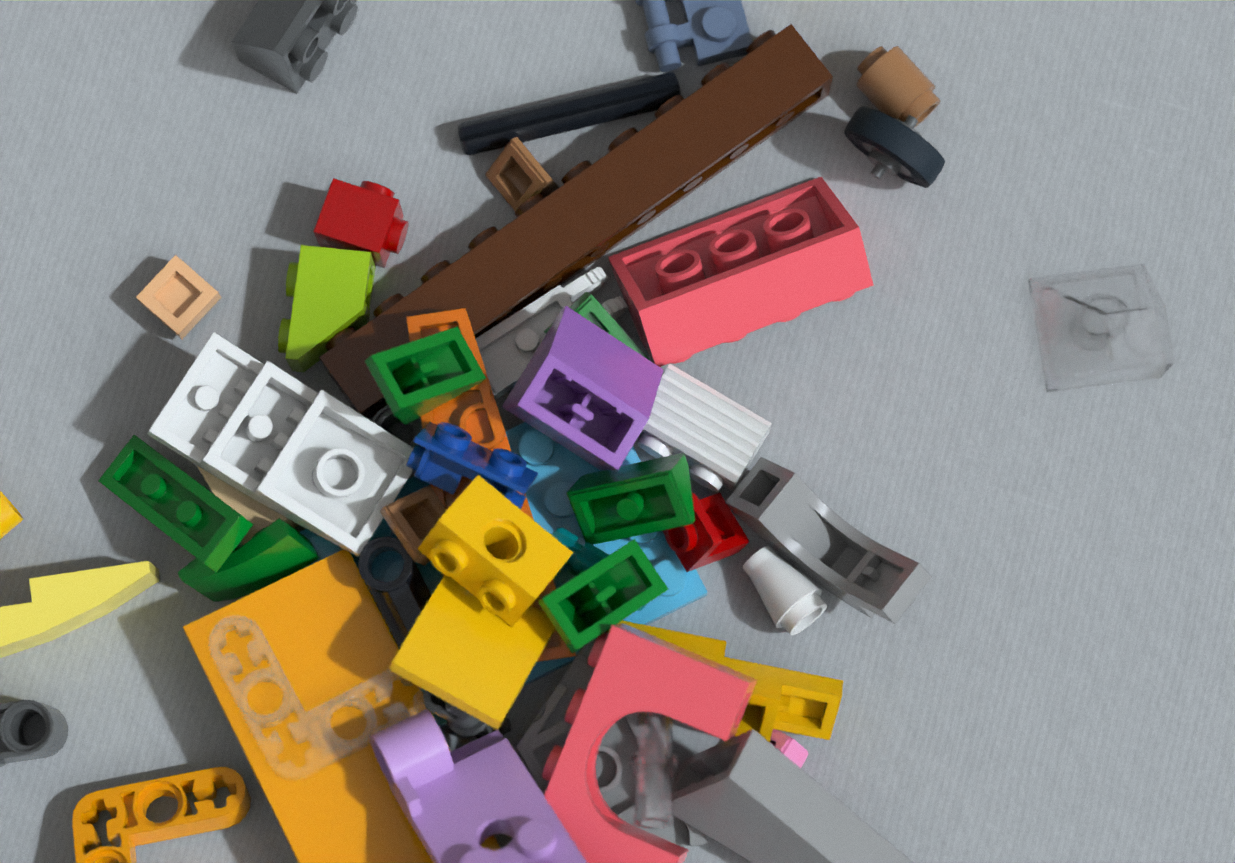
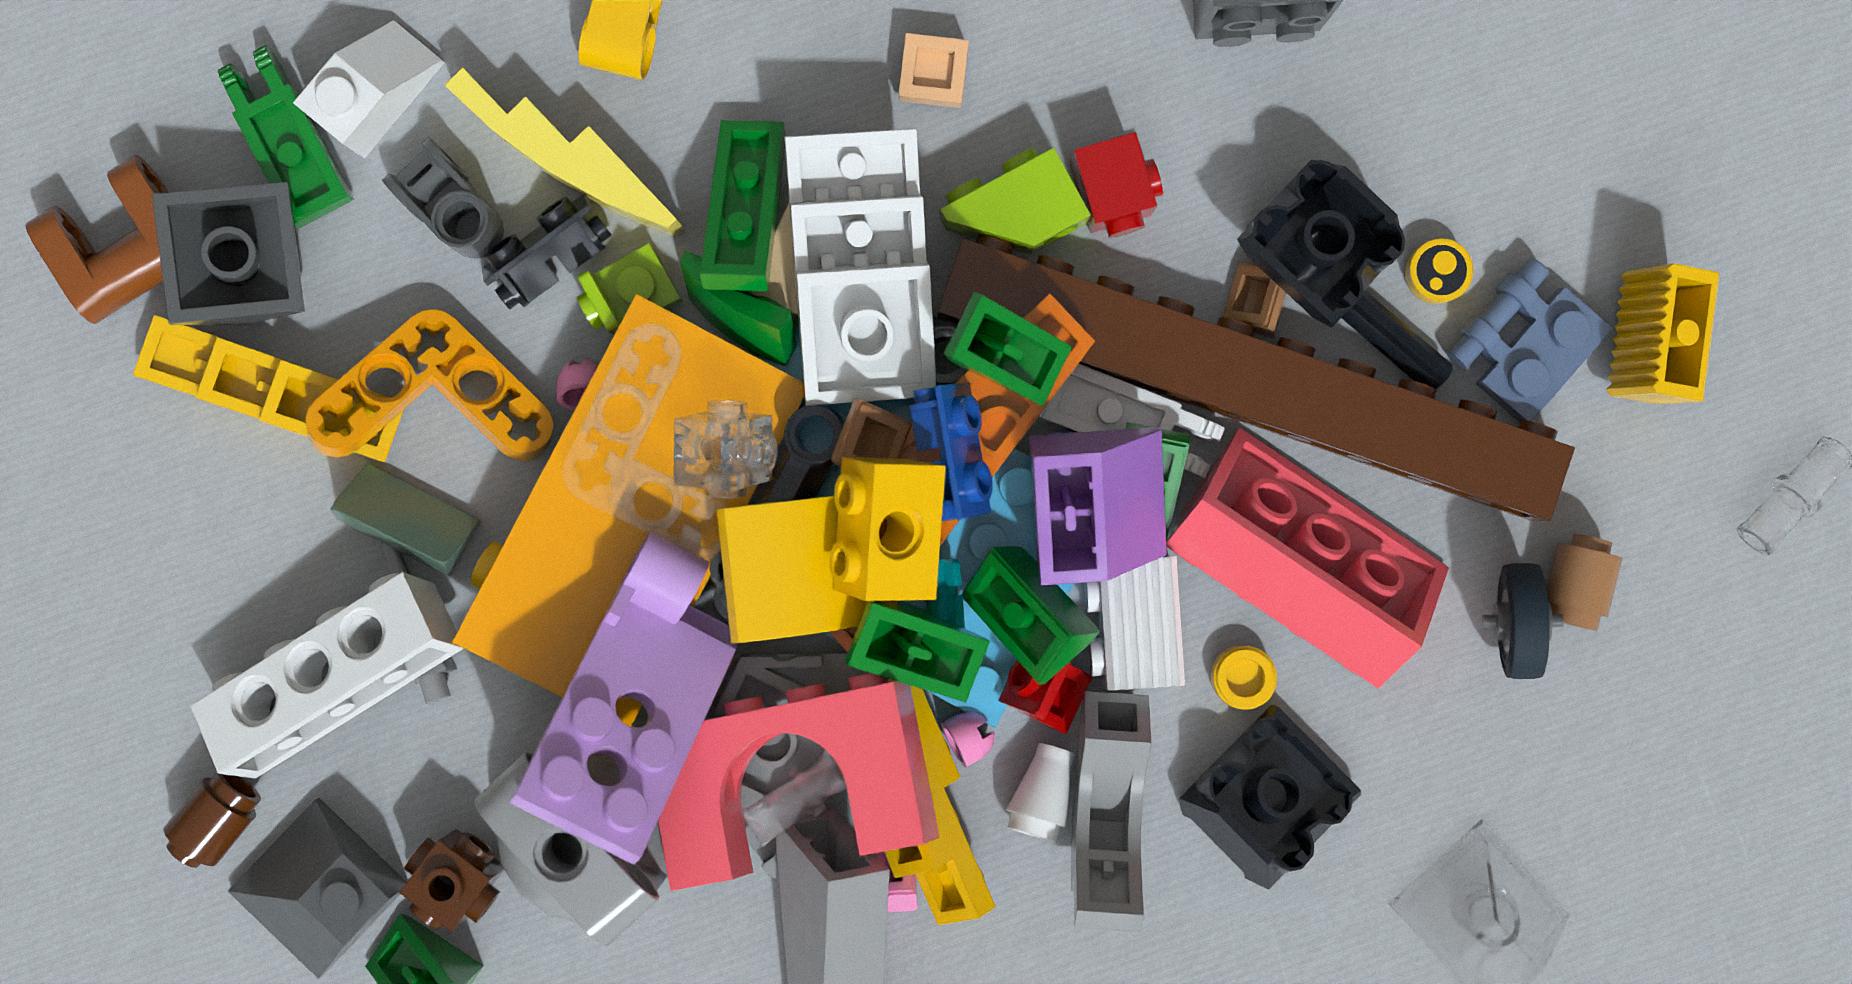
camera: 55 degrees right, 10 degrees up
(92, 706) = (523, 262): none -> black hinge
(166, 647) = (615, 286): none -> lime bracket
(209, 732) = (573, 382): none -> bright pink hinge
(348, 635) = (724, 449): none -> clear brick
(511, 97) = (1324, 239): none -> black slope
(595, 35) = (1439, 271): none -> tile
(700, 618) = (966, 739): none -> bright pink hinge
(798, 381) = (1243, 677): none -> yellow tile
(903, 424) = (1270, 798): none -> black slope

